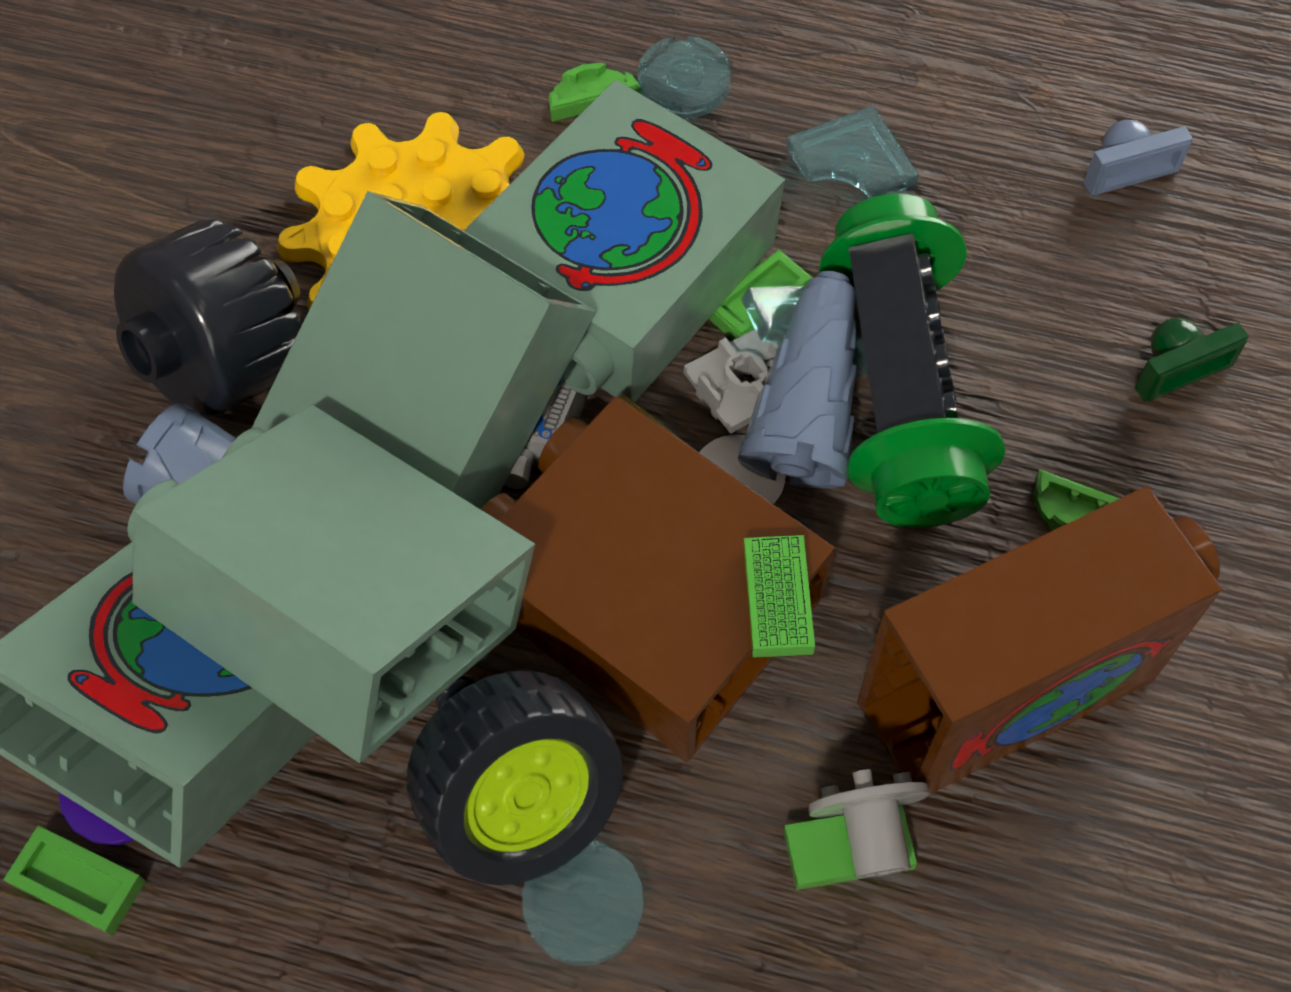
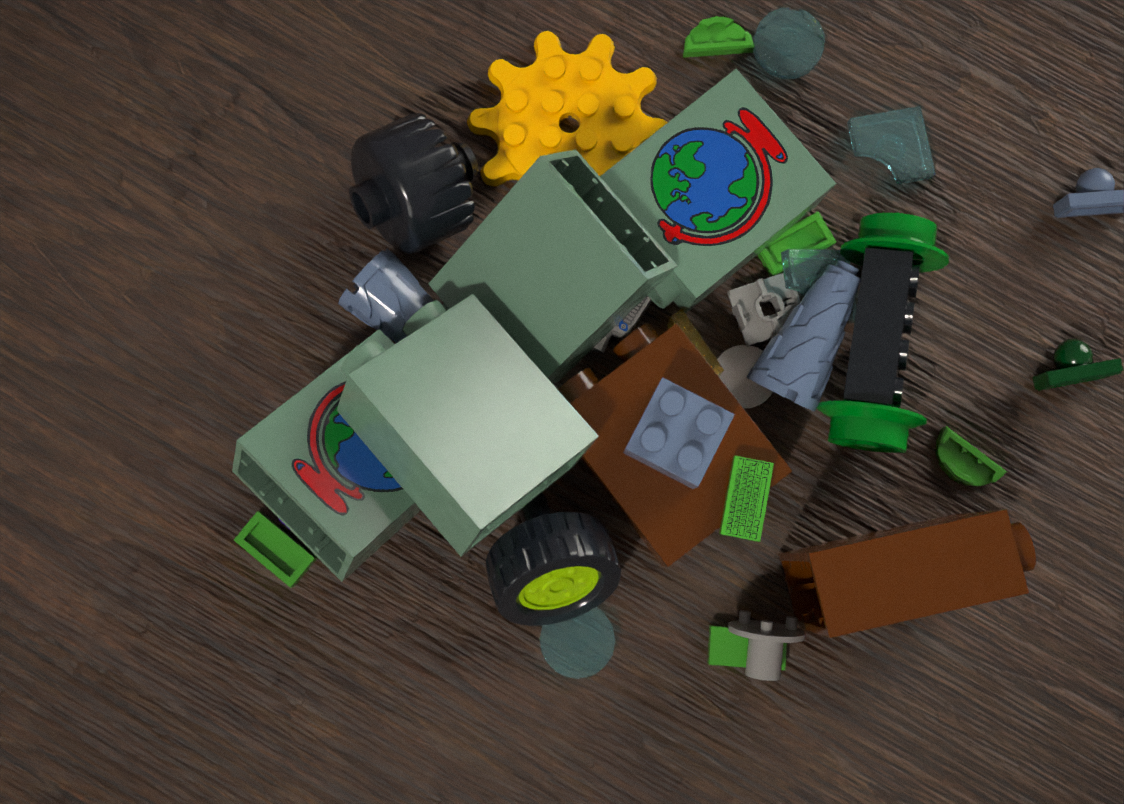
camera: 15 degrees right, 20 degrees up
(651, 524) = (679, 433): none -> sand blue brick

